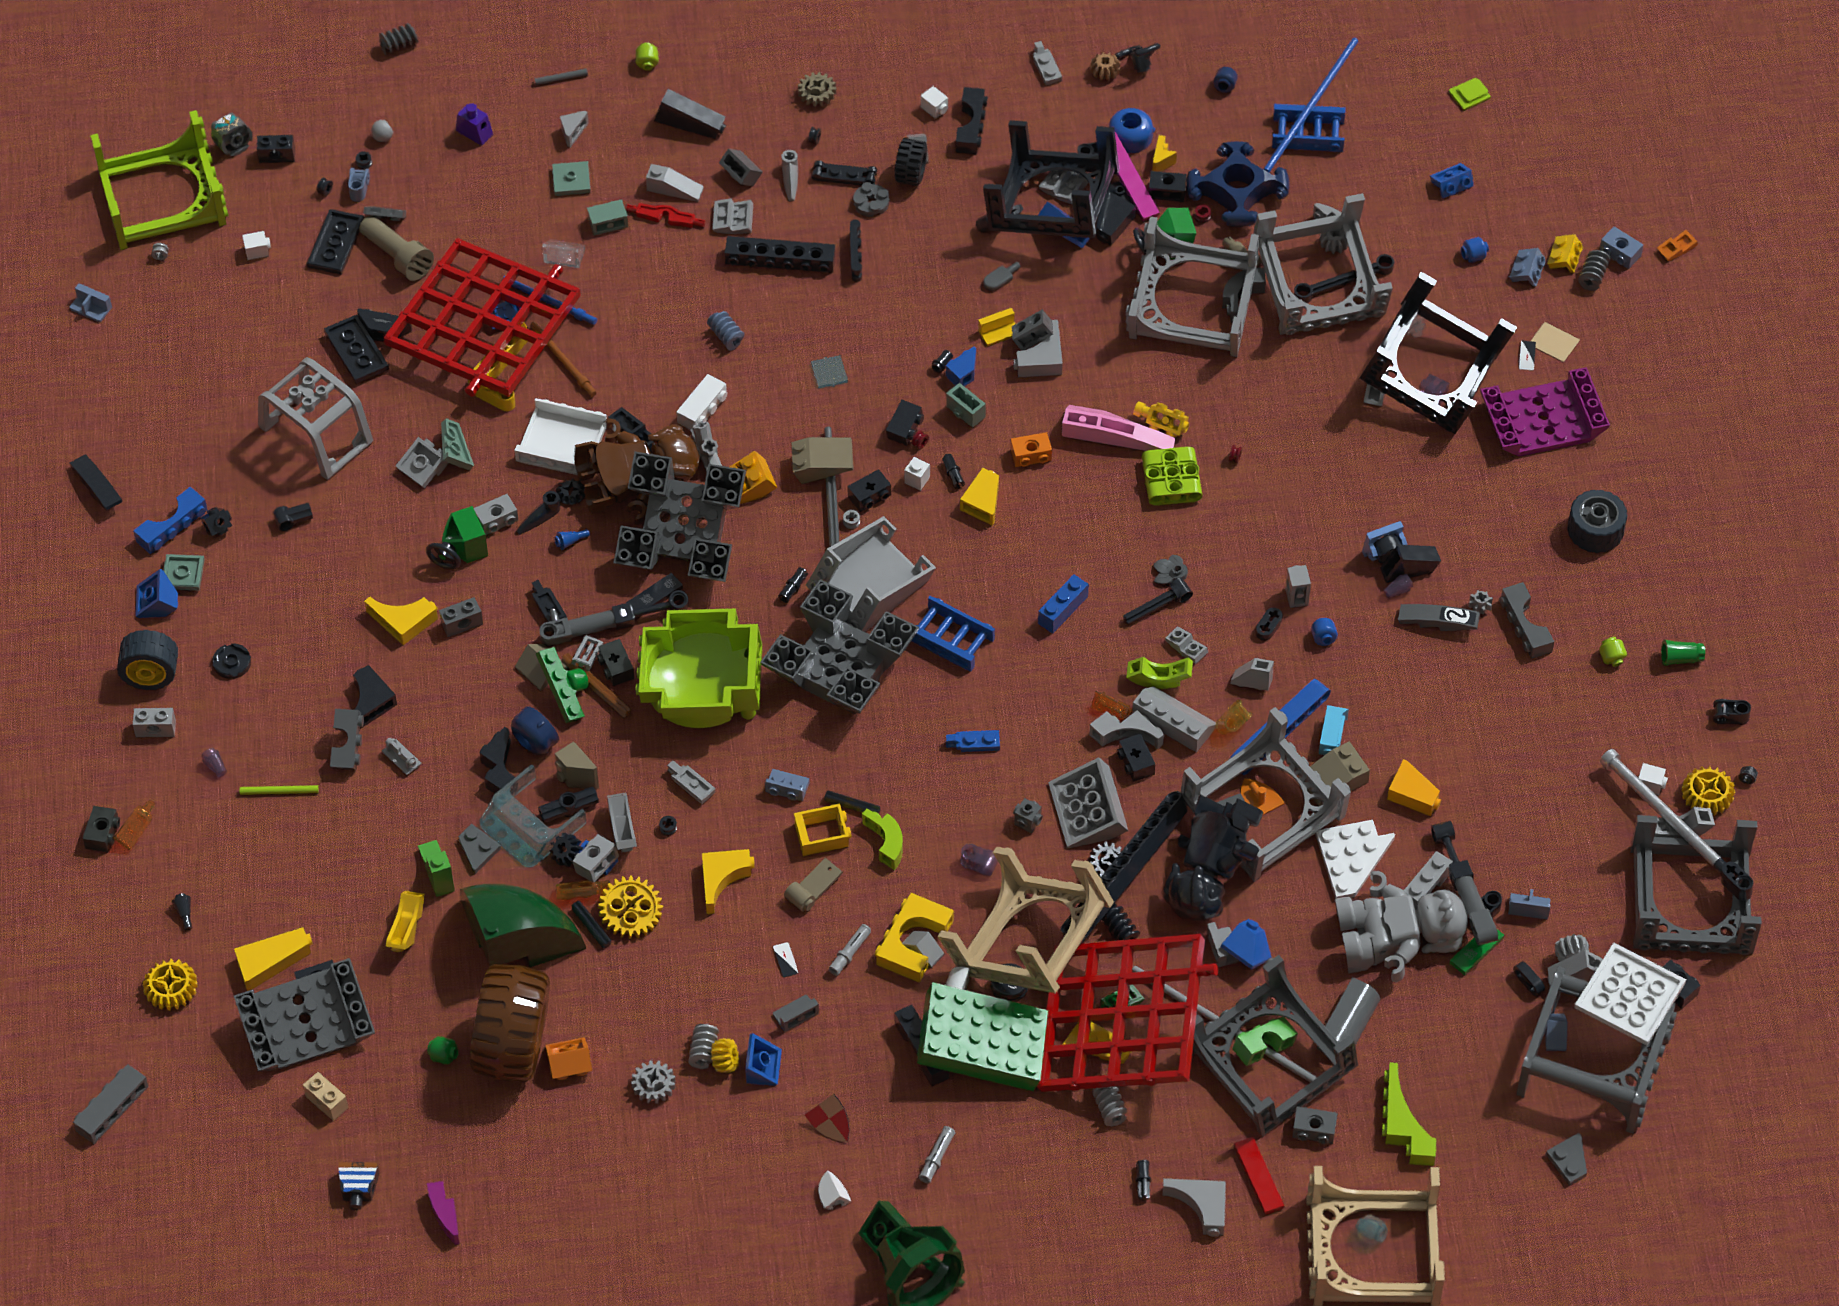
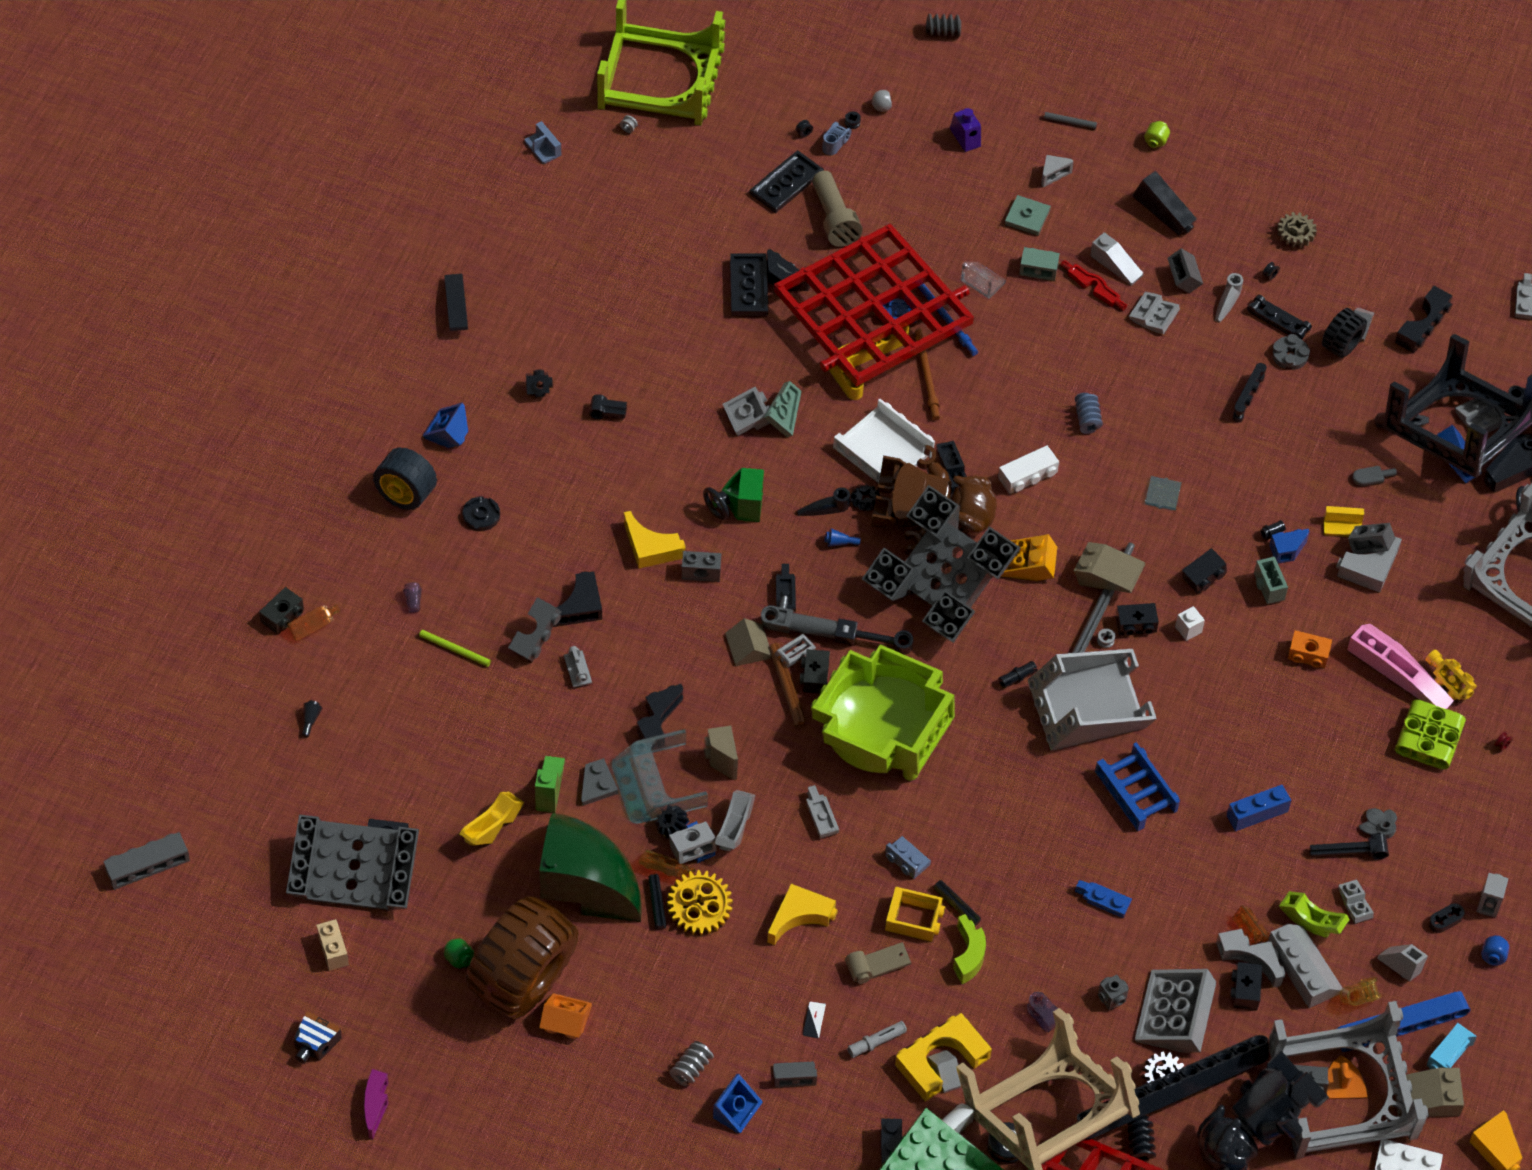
camera: 25 degrees right, 0 degrees up
(153, 534) = (479, 371): blue arch -> none
(154, 722) = (381, 537): light grey brick -> none
(160, 979) = (261, 784): yellow gear -> none
(184, 571) = (485, 415): sand green plate -> none
(231, 134) = (748, 47): dark grey brick -> none
(256, 245) = (714, 154): white brick -> none
(271, 956) = (360, 794): yellow slope -> none
(275, 148) = (780, 77): black brick -> none
(309, 399) = (670, 306): light grey windscreen -> none
(379, 212) = (838, 171): dark grey wing -> none
(496, 514) = (779, 482): light grey brick -> none
(534, 731) = (703, 700): dark blue piece -> none
(559, 807) = (709, 782): black piece -> none
(563, 684) = (755, 669): green plate -> none
(656, 593) = (888, 624): black tile -> none
(659, 1087) = (631, 1082): light grey gear -> none
(664, 821) = (779, 848): black bush -> none
(705, 444) = (1009, 511): light grey piece -> none
(724, 1055) = (705, 1082): yellow gear -> none
(780, 254) = (1177, 365): black brick -> none
(838, 658) = (1020, 762): dark grey slope -> none
(920, 439) = (1211, 593): dark red bush -> none
(934, 102) = (1399, 288): white brick -> none
(953, 471) = (1225, 636): black axle -> none
(982, 496) = (1239, 672): yellow slope -> none

